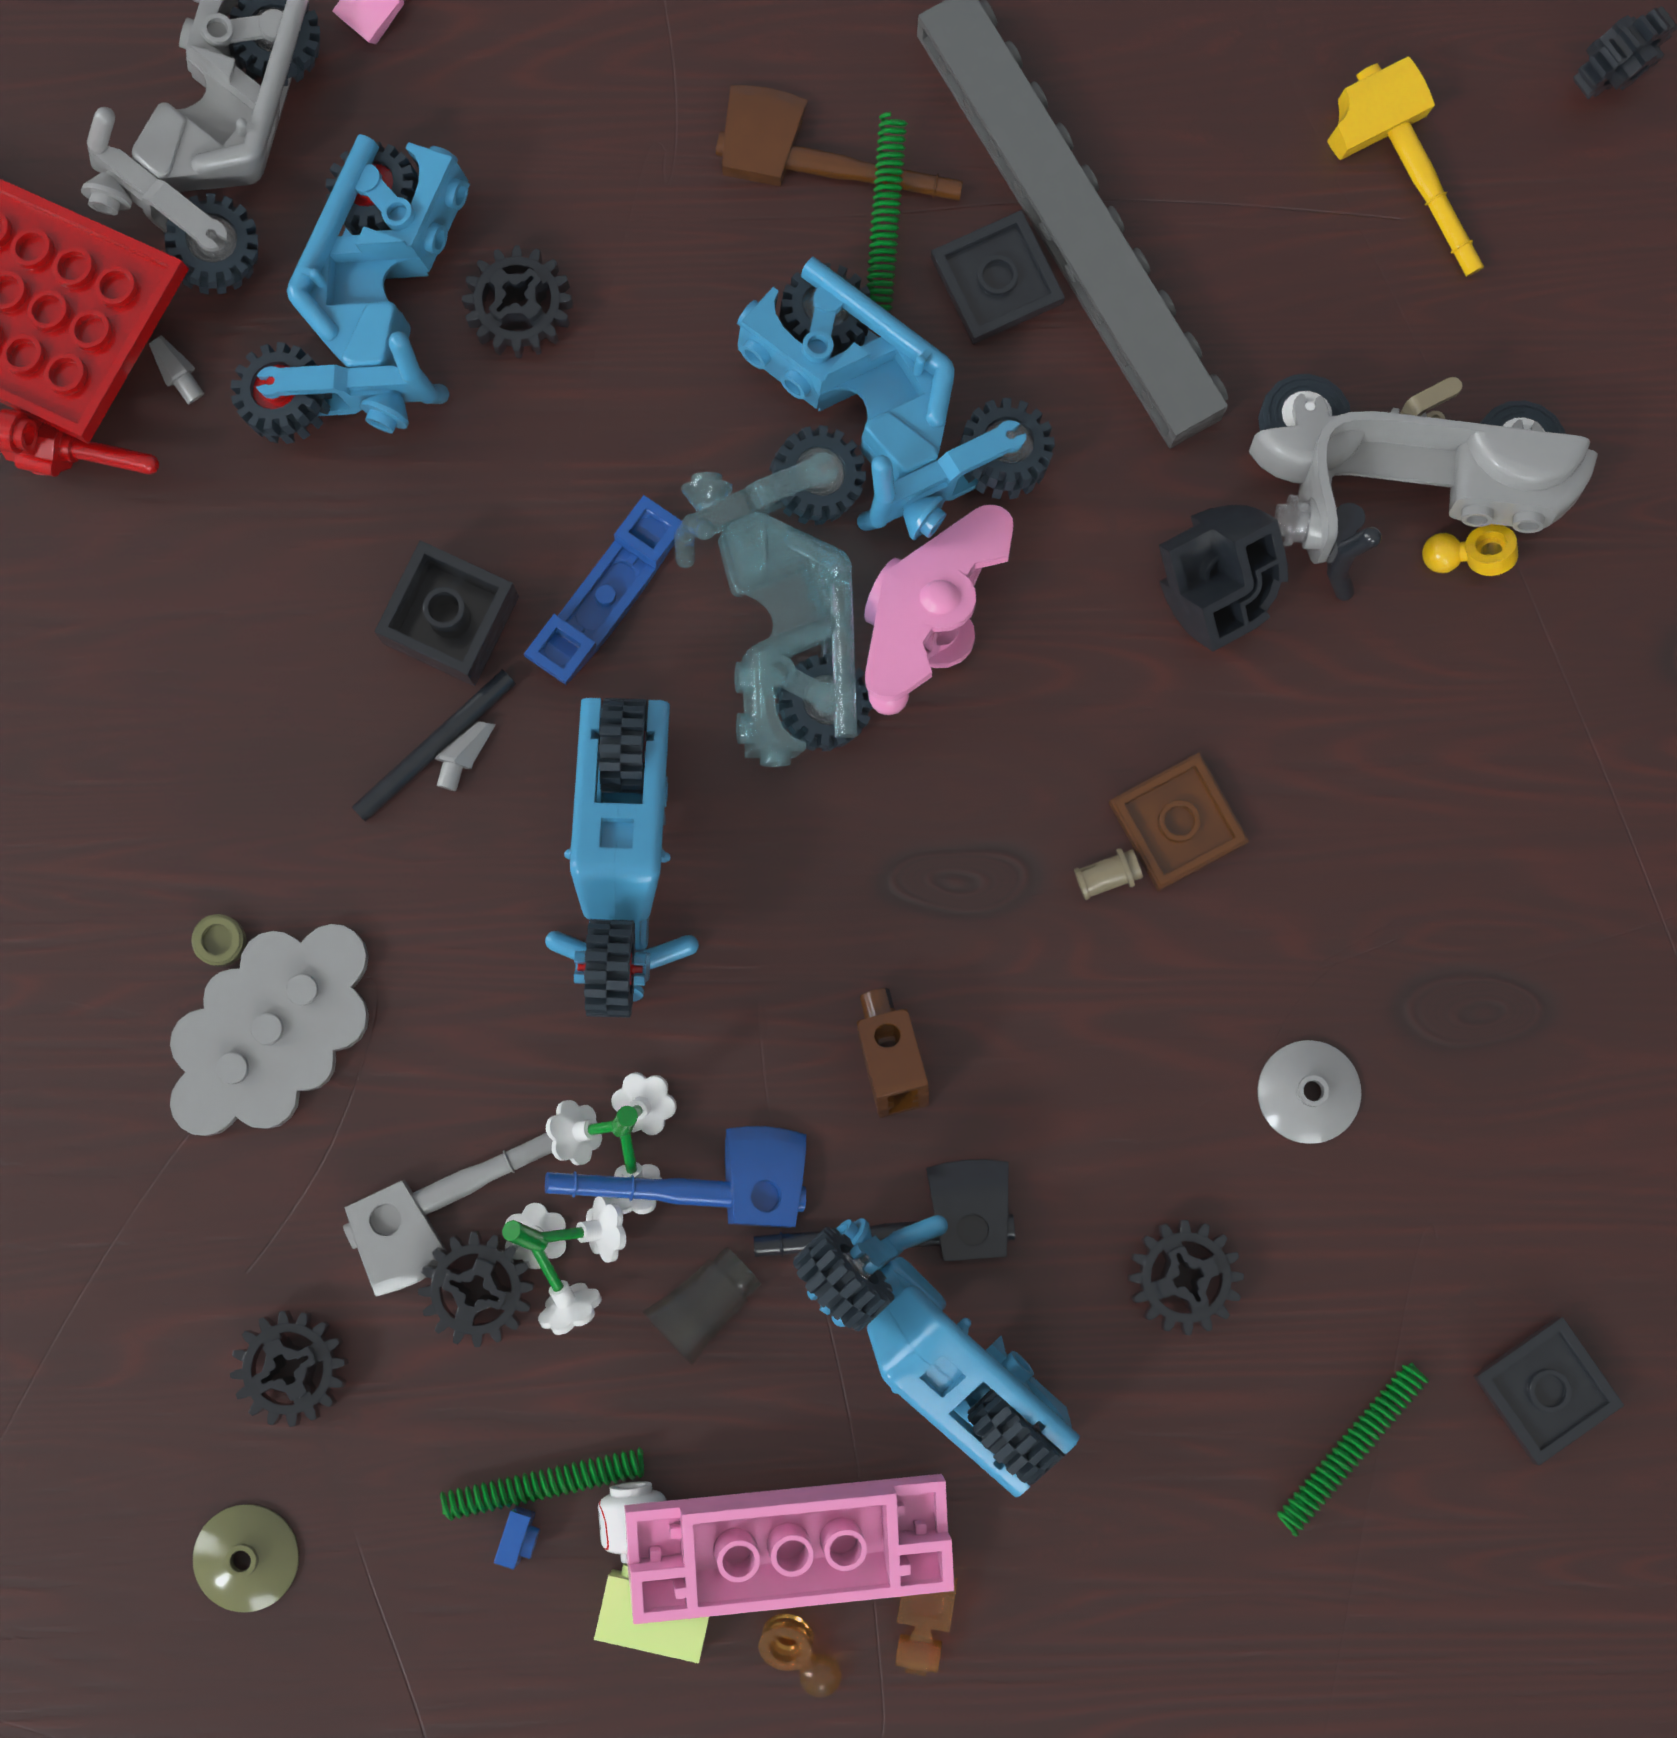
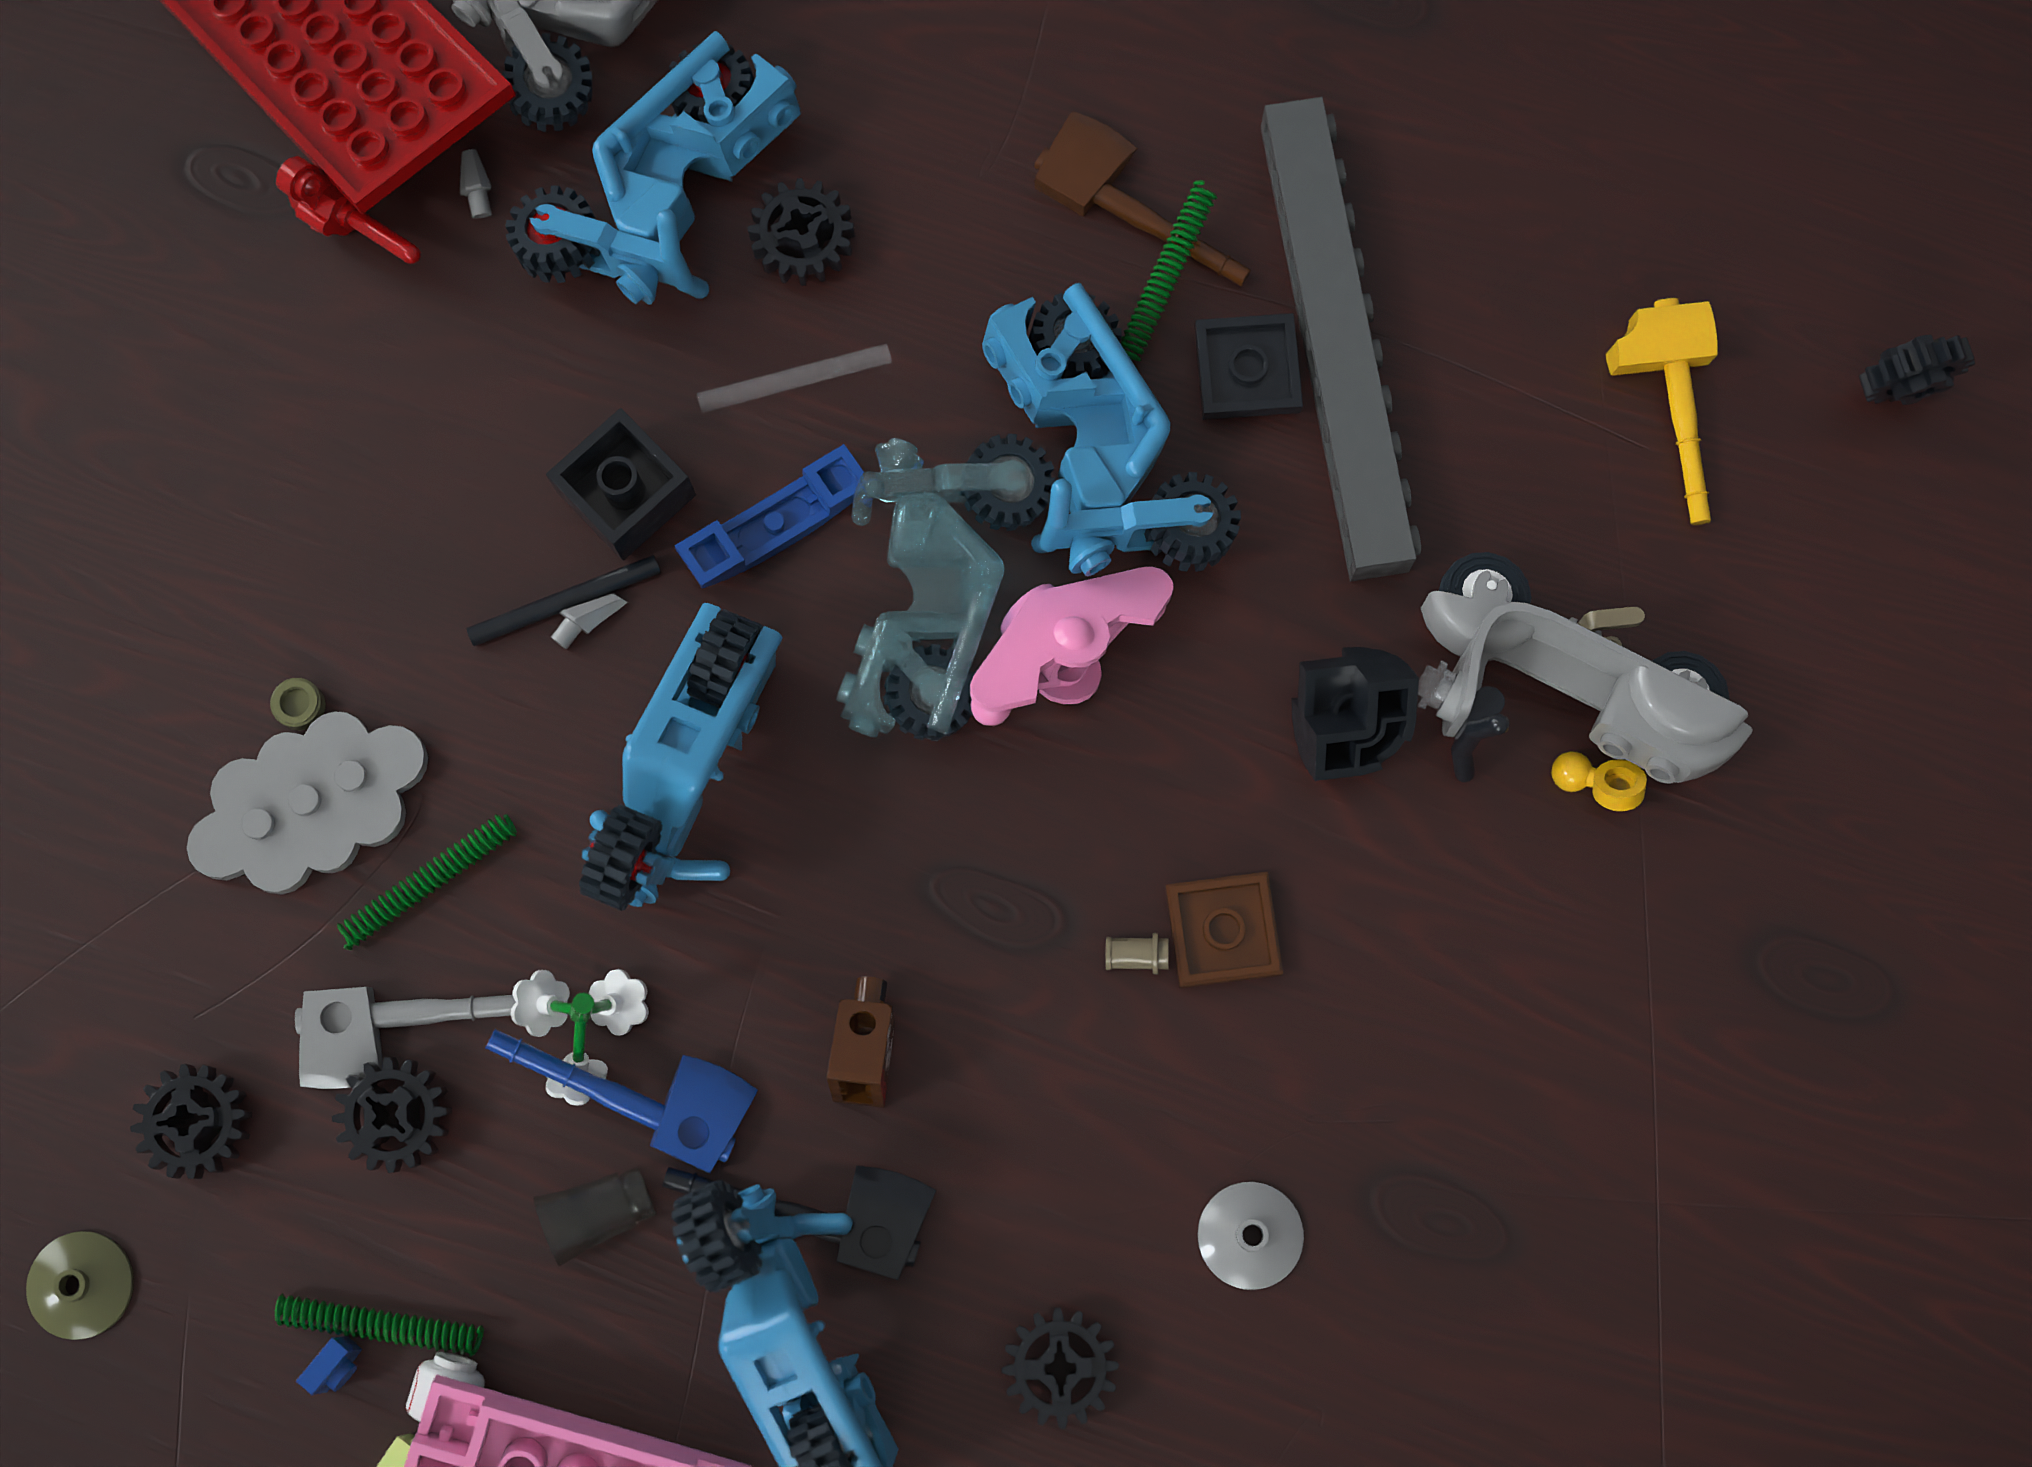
camera: 25 degrees right, 5 degrees down
(420, 1055) = (430, 887): none -> green piece
(543, 1237) = (475, 1090): white plant -> none
(567, 447) = (794, 378): none -> clear bar

